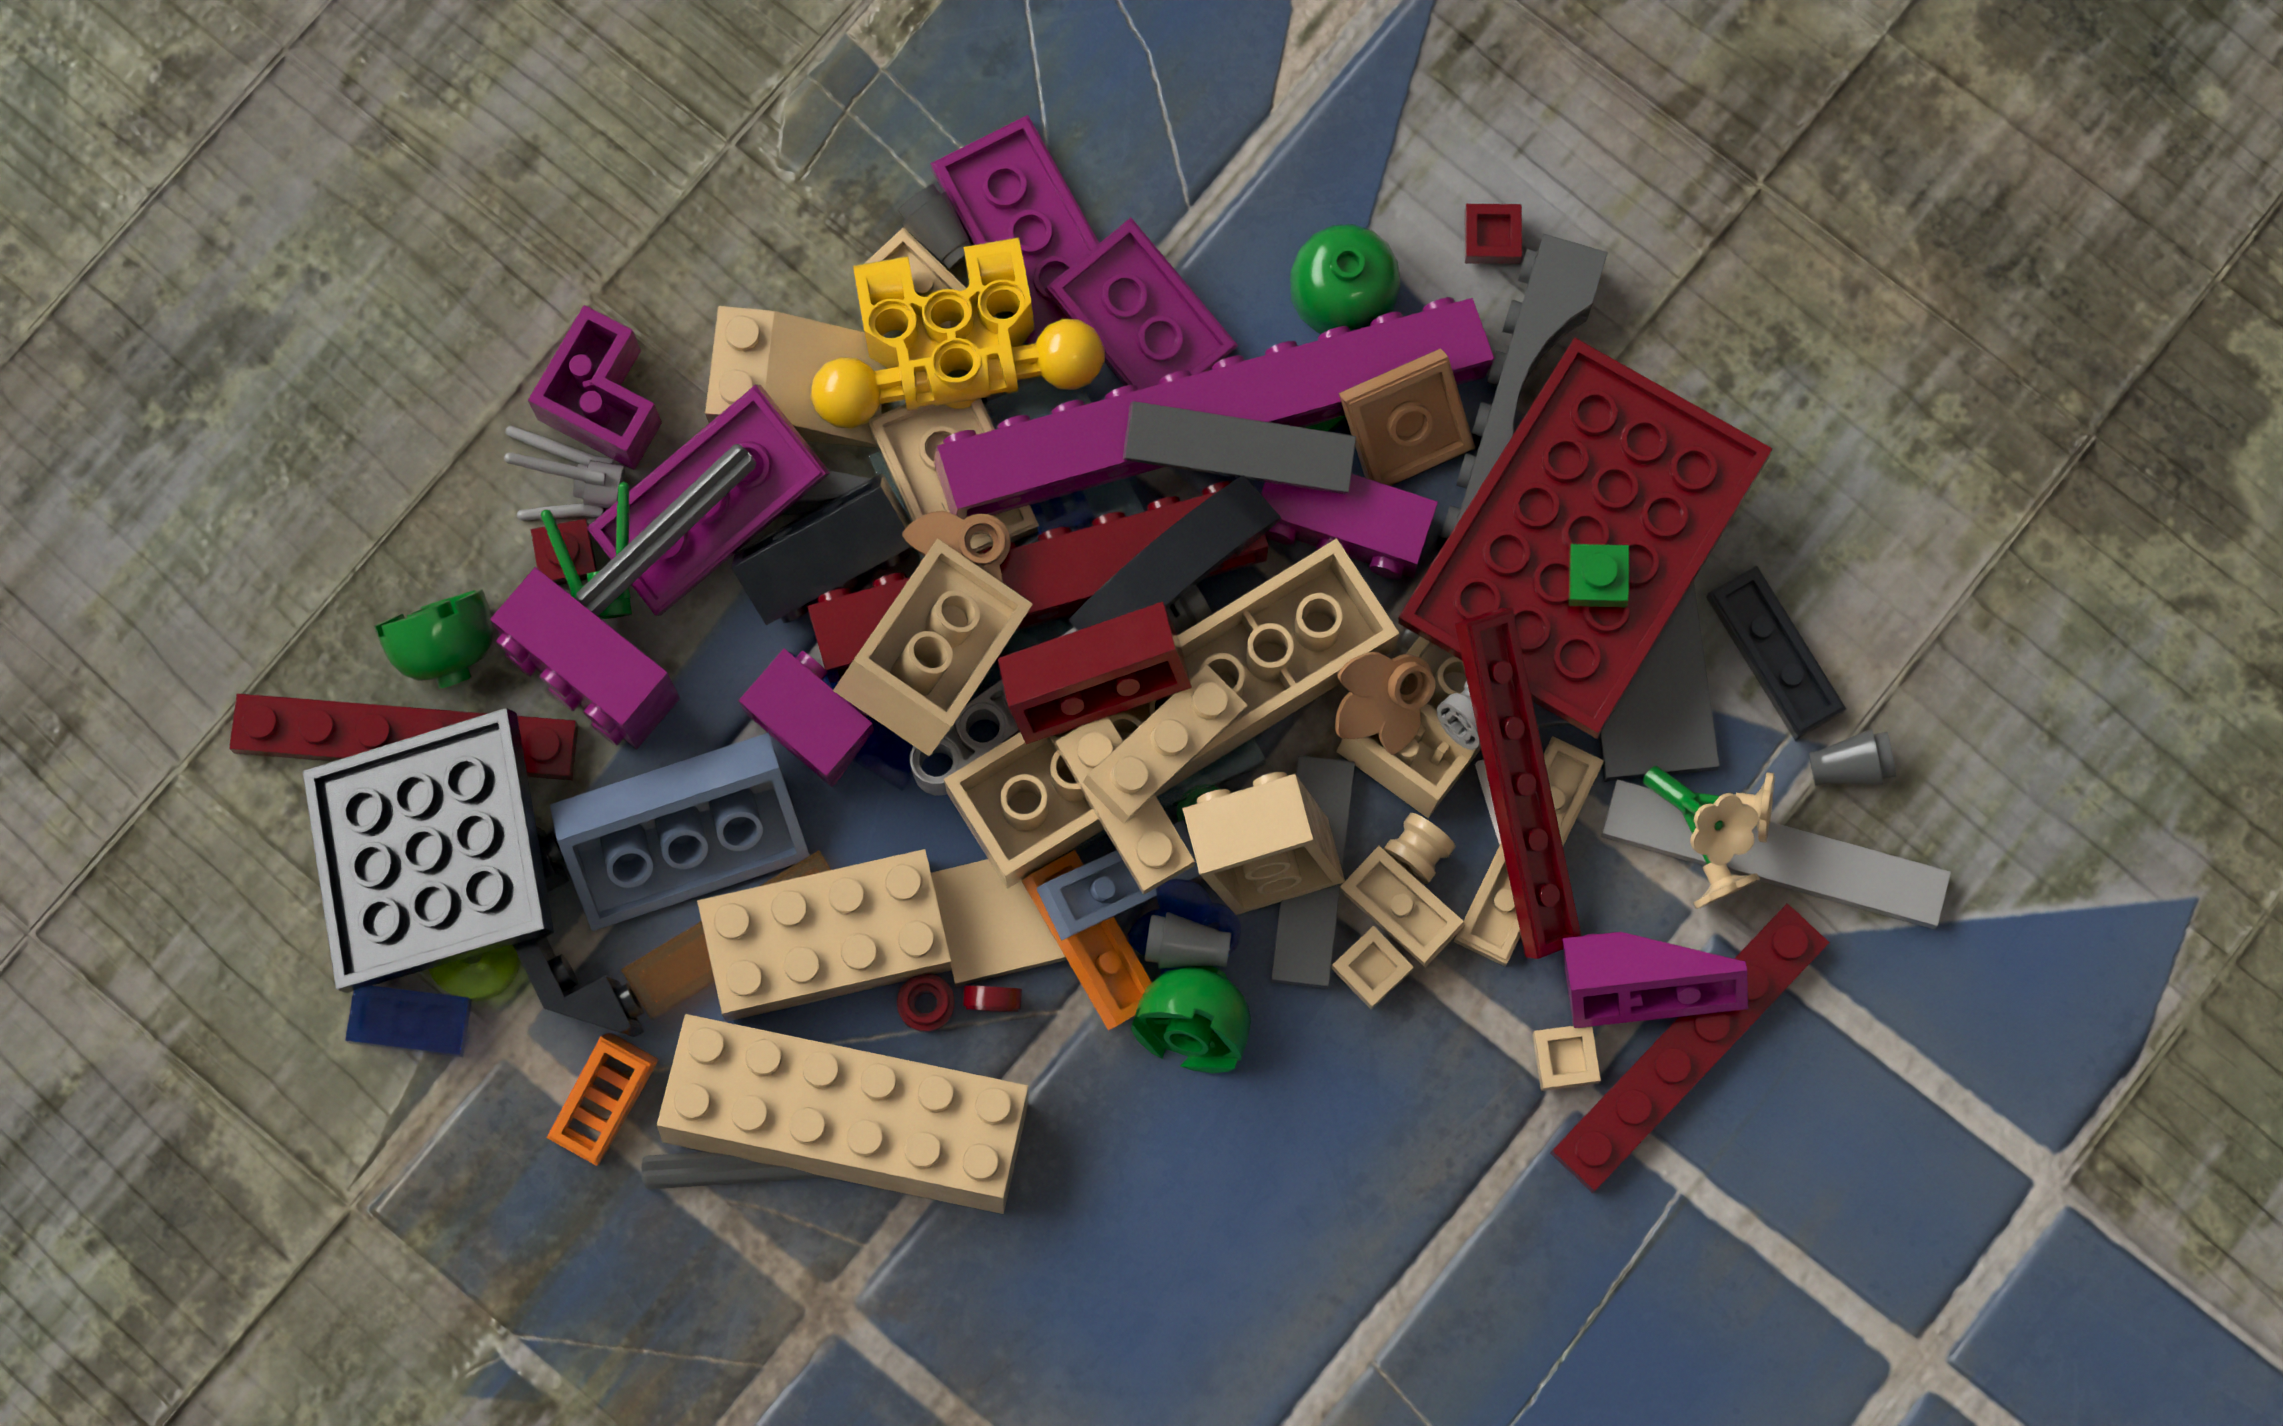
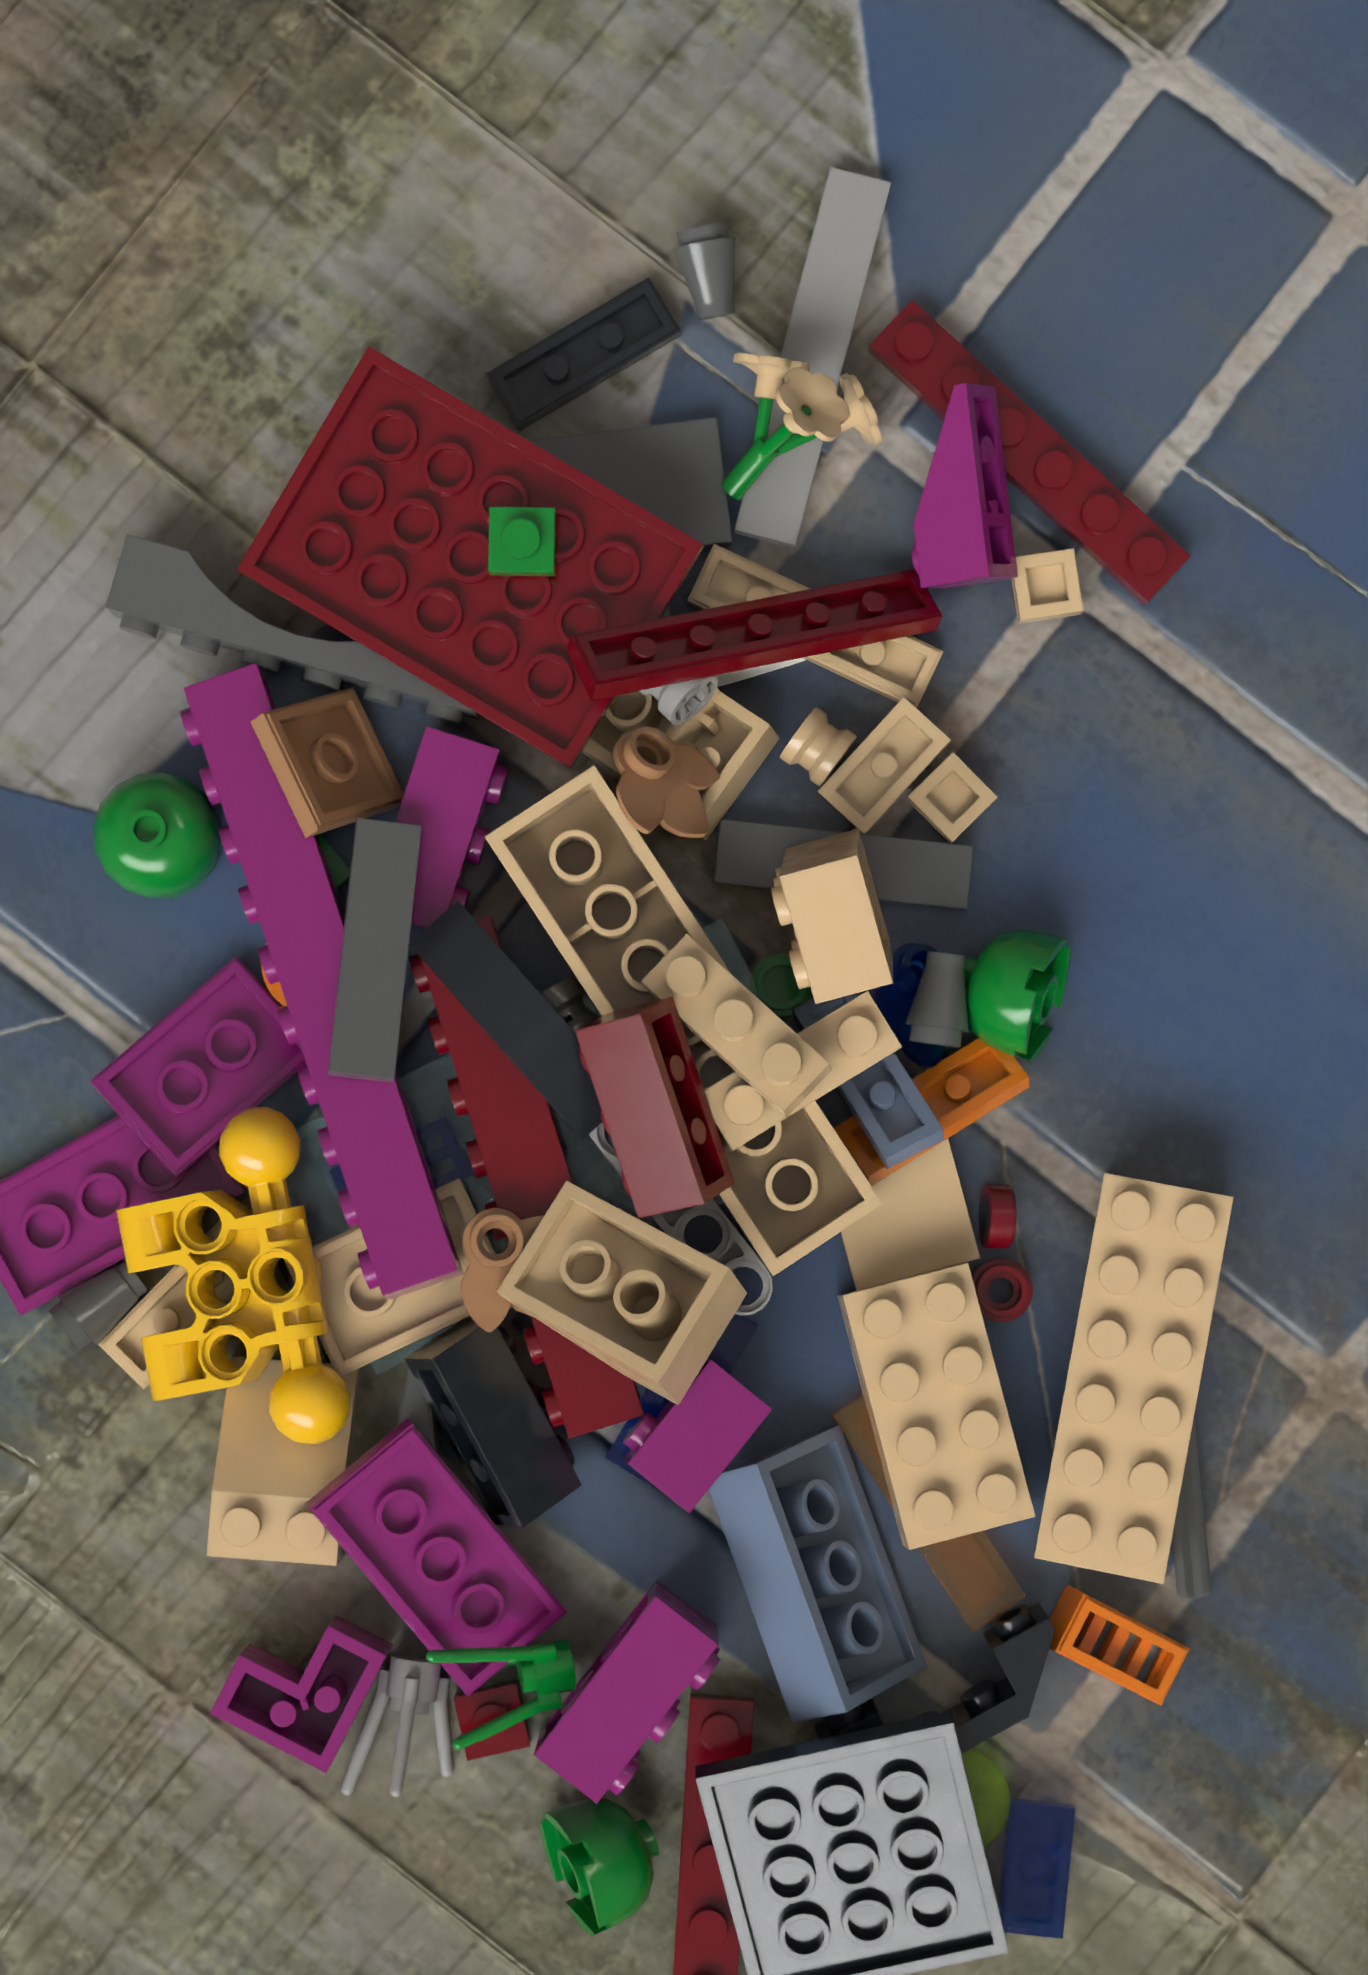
camera: 90 degrees left, 10 degrees up
(666, 529) = (481, 1604): dark grey axle -> none
(1493, 233) = (99, 666): dark red plate -> none

